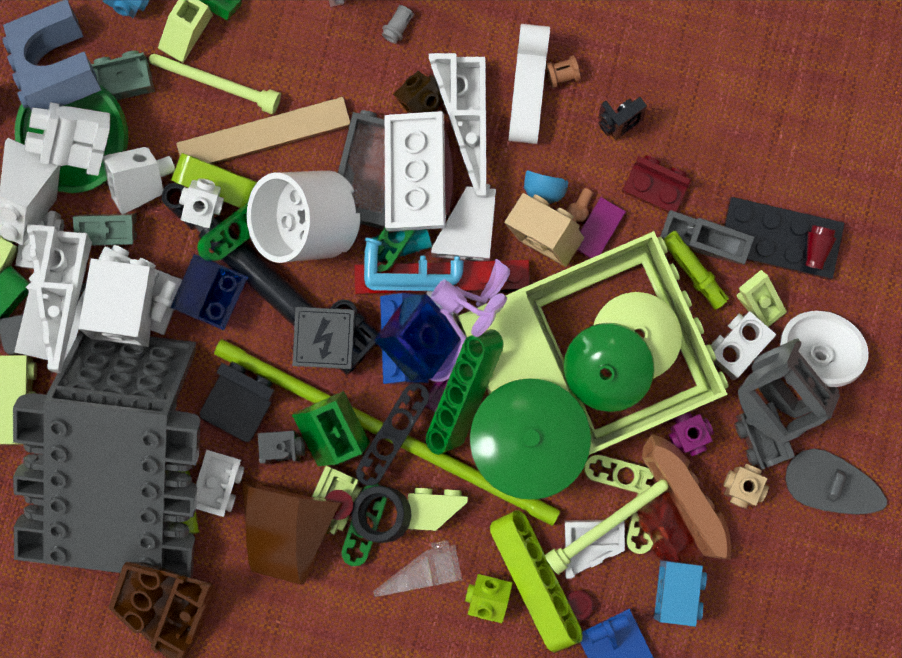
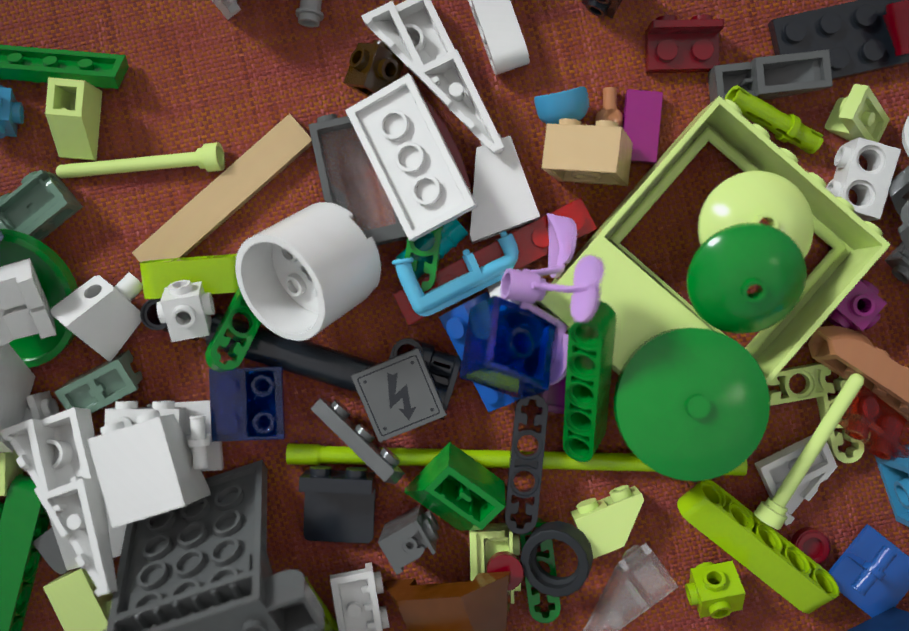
camera: 25 degrees left, 5 degrees up
(278, 358) = (359, 439): none -> dark grey plate

